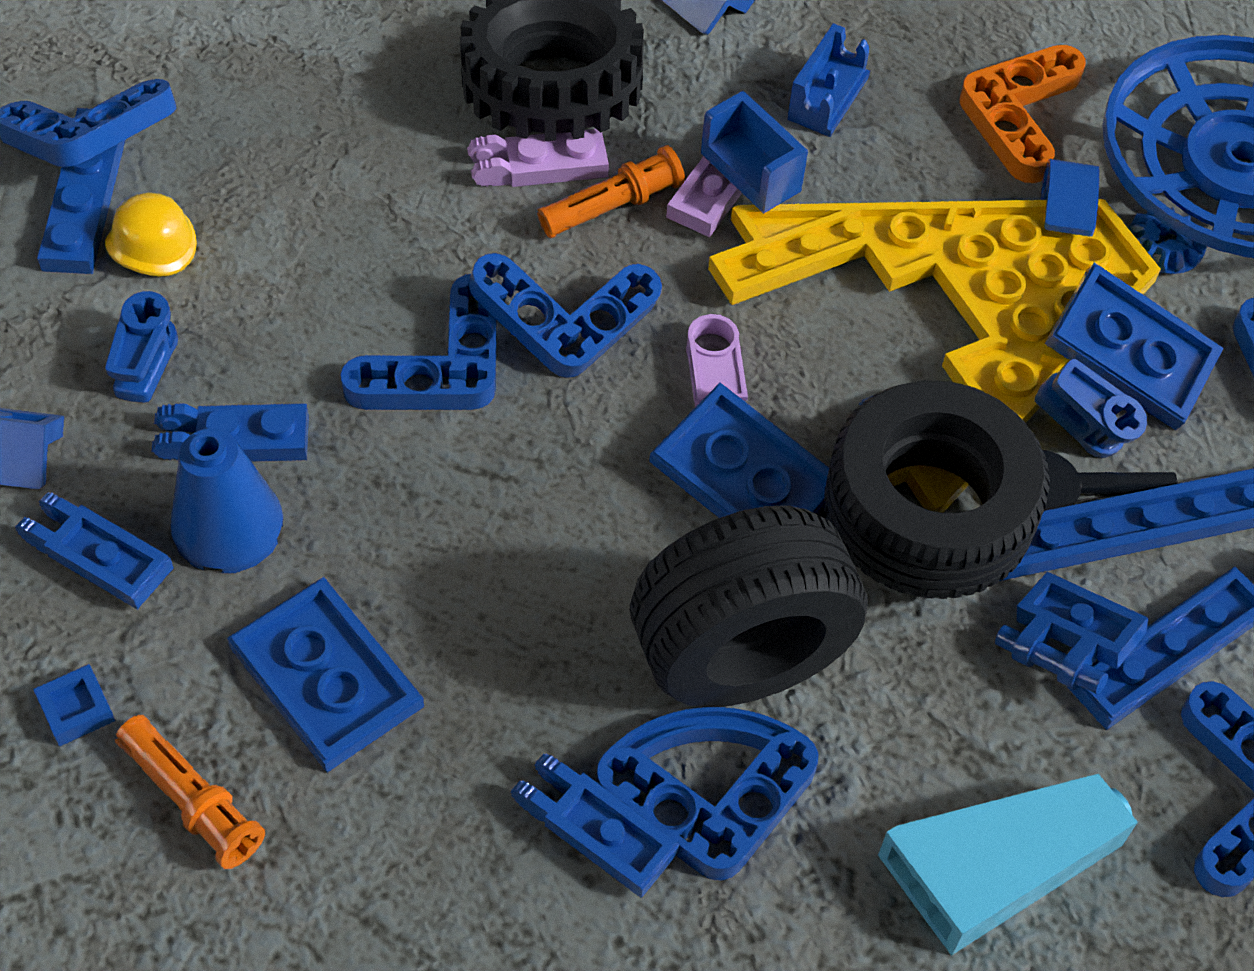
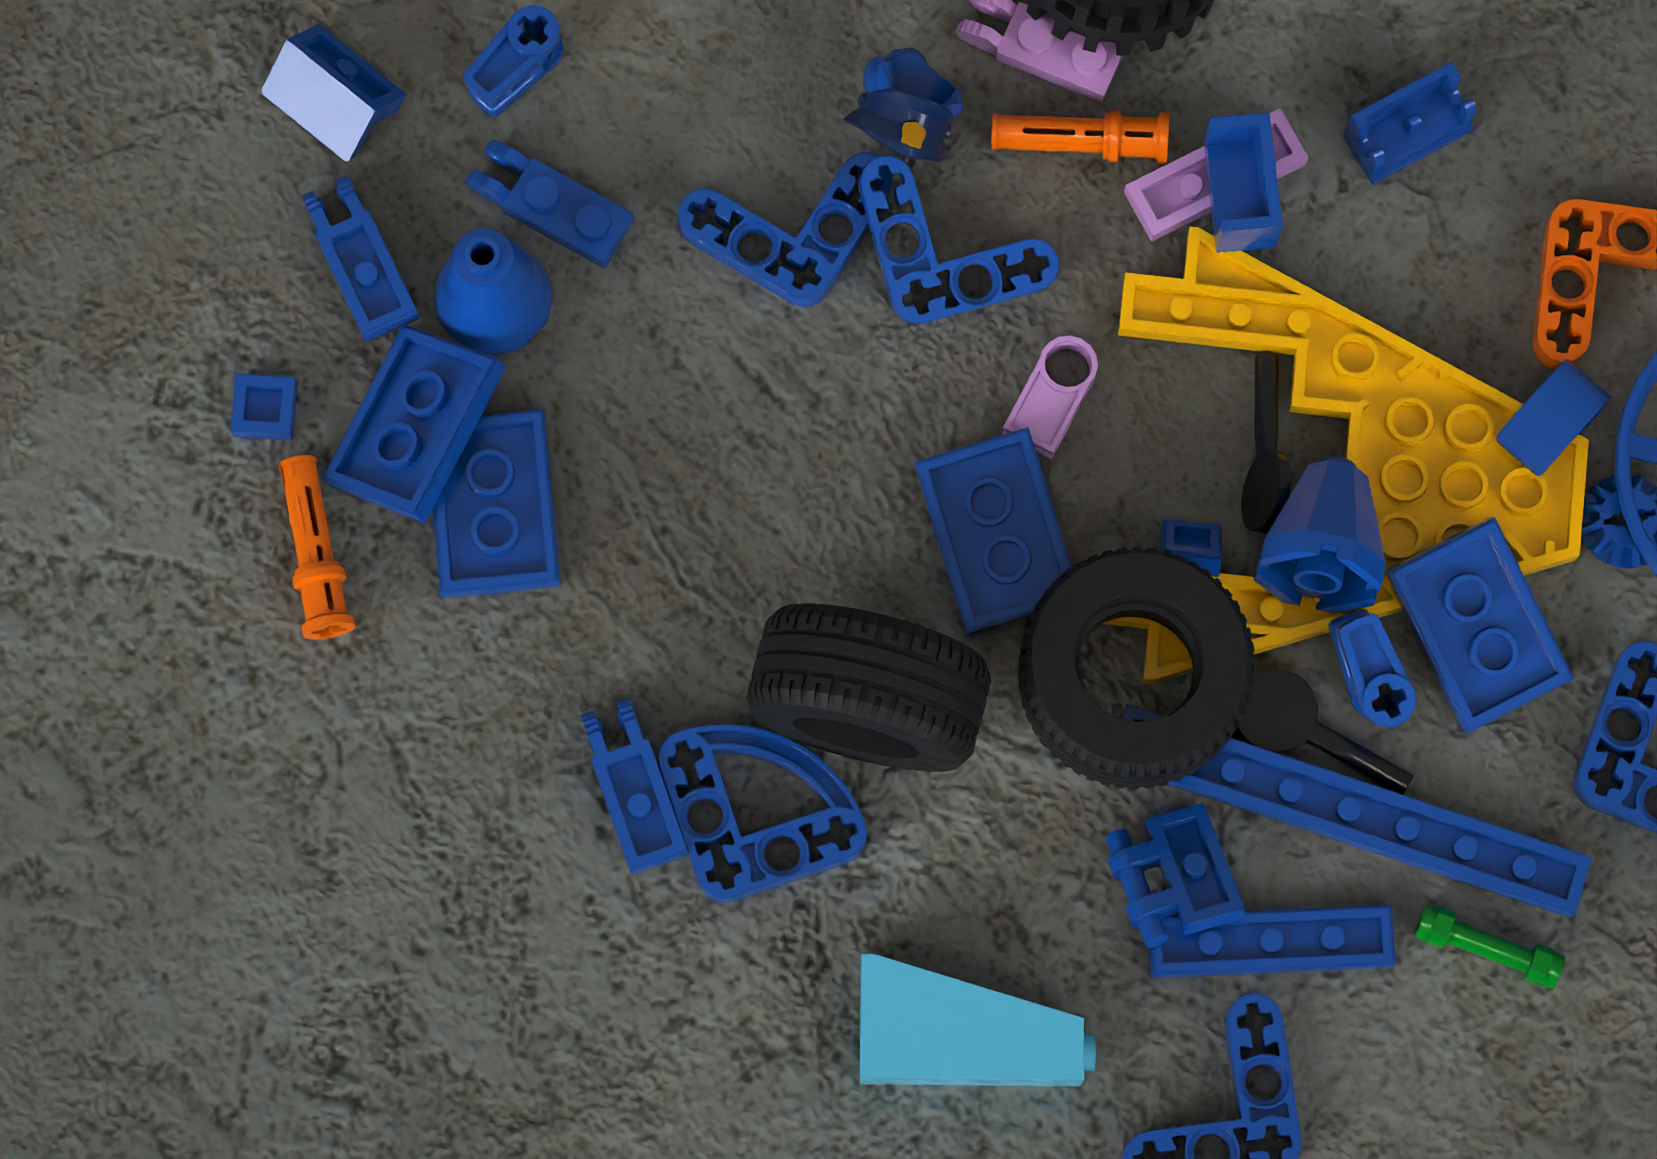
camera: 35 degrees right, 20 degrees up
(218, 644) = (414, 423): none -> blue tile
(474, 227) = (907, 105): none -> piece
(918, 329) = (1269, 476): none -> black piece
(1000, 335) = (1325, 541): none -> blue cone

